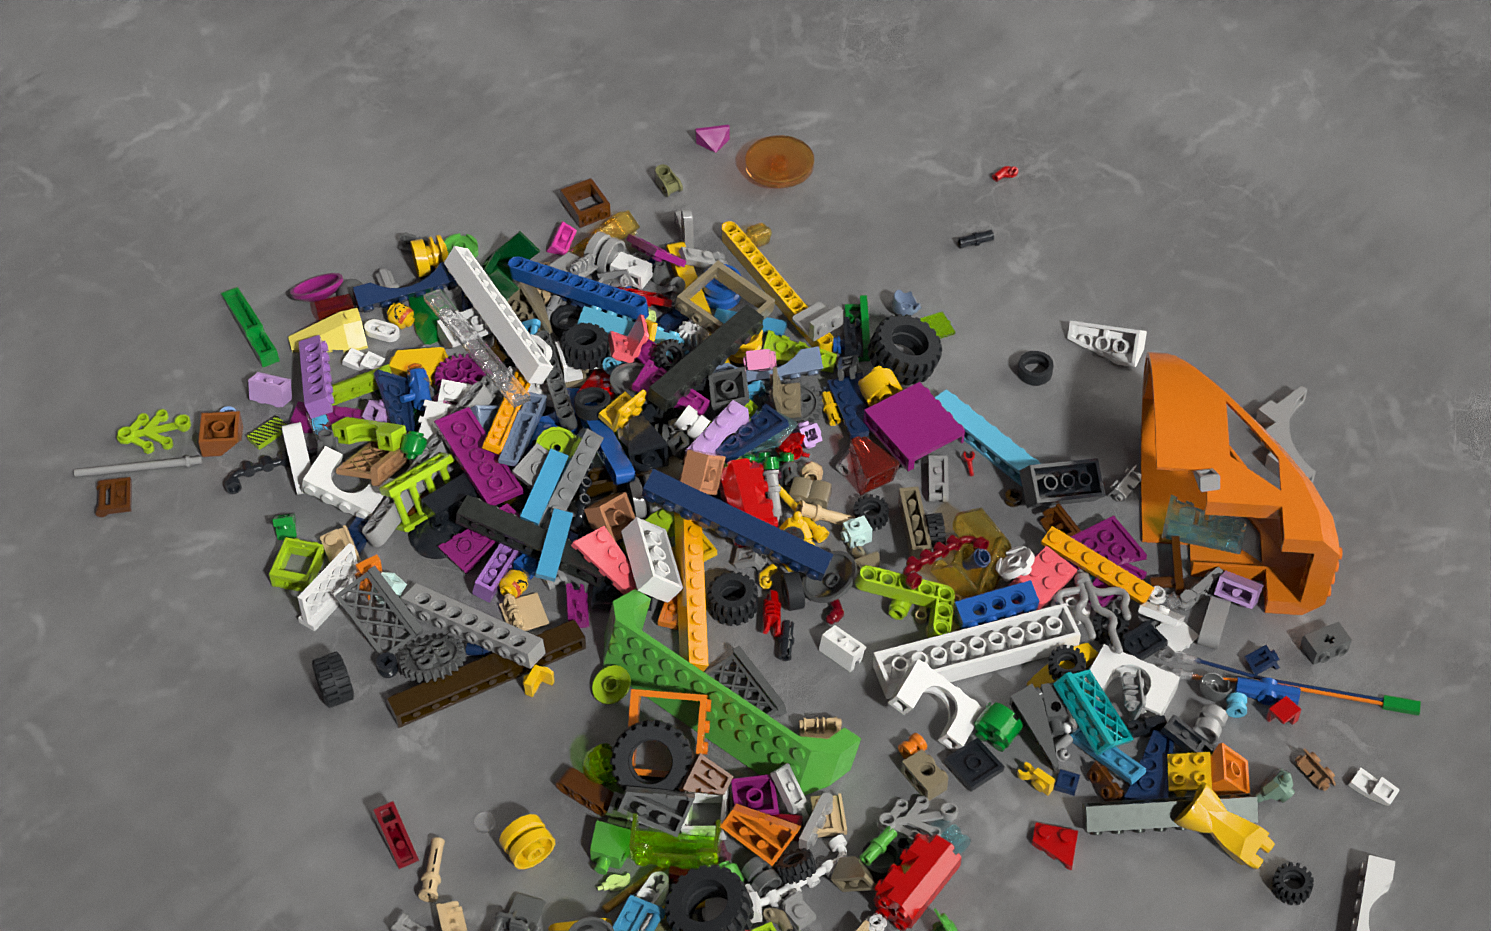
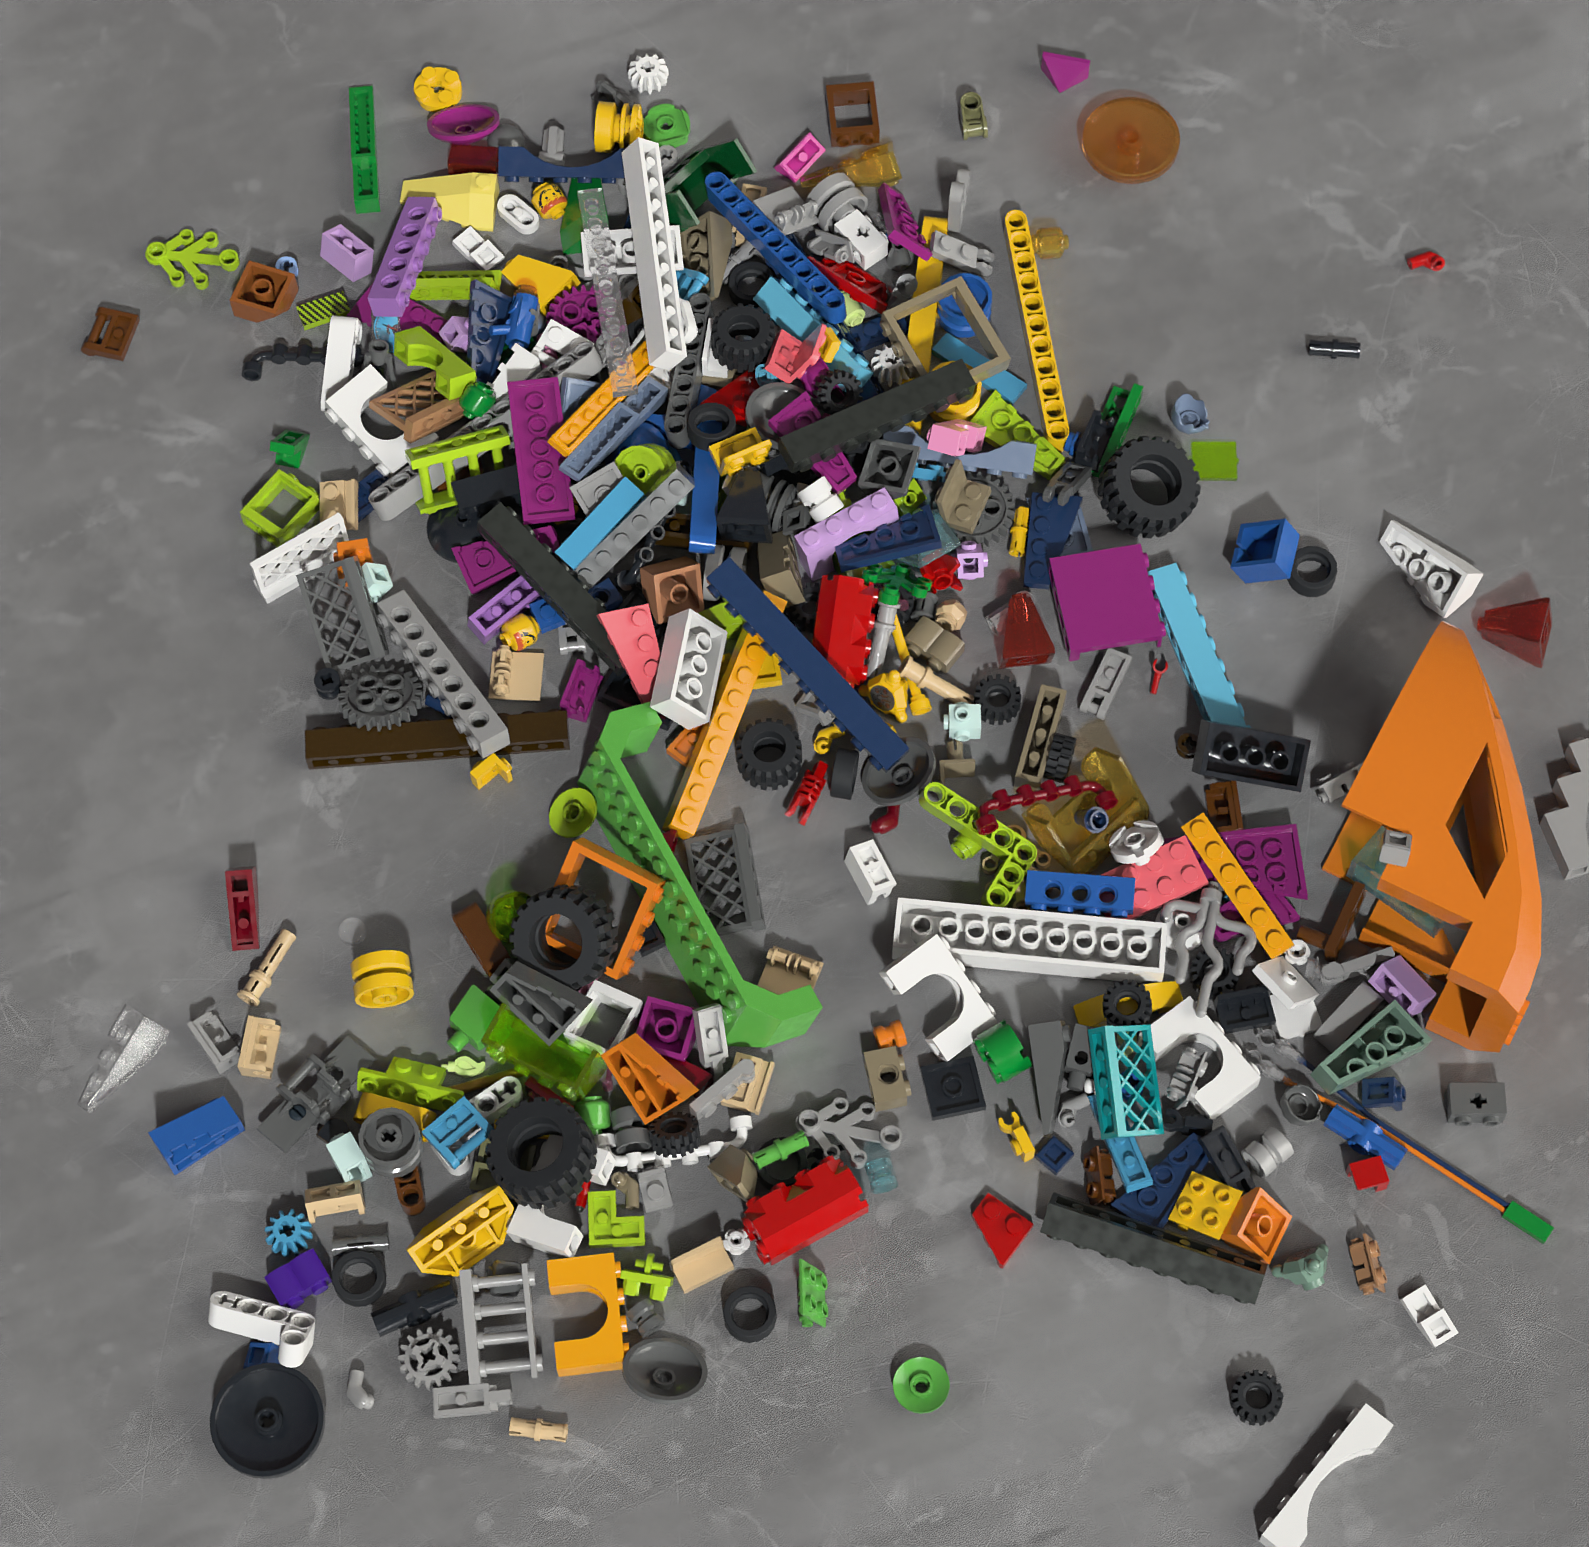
camera: 25 degrees right, 15 degrees up
(187, 461) = (213, 316): light grey bar -> none
(279, 269) = (437, 77): none -> yellow plate
(333, 679) = (252, 682): black tyre -> none
(432, 221) = (648, 73): none -> white gear
(554, 545) = (577, 606): dark azure tile -> none
(582, 905) = (410, 1083): none -> lime bracket
(702, 471) = (794, 578): nougat slope -> none
(706, 777) = (614, 986): wing -> none
(713, 746) = (653, 940): none -> black plate
(786, 640) = (808, 834): black pin -> none
(819, 320) = (1058, 403): light grey bracket -> none
(879, 385) = (1088, 530): yellow brick -> none
(1001, 363) = (1269, 546): none -> blue piece
(1192, 350) = (1519, 629): none -> clear red slope
(1233, 833) = (1213, 1306): yellow hips -> none
(1236, 705) = (1315, 1140): medium azure wheel -> none
(1243, 631) = (1377, 1045): none -> sand green wedge

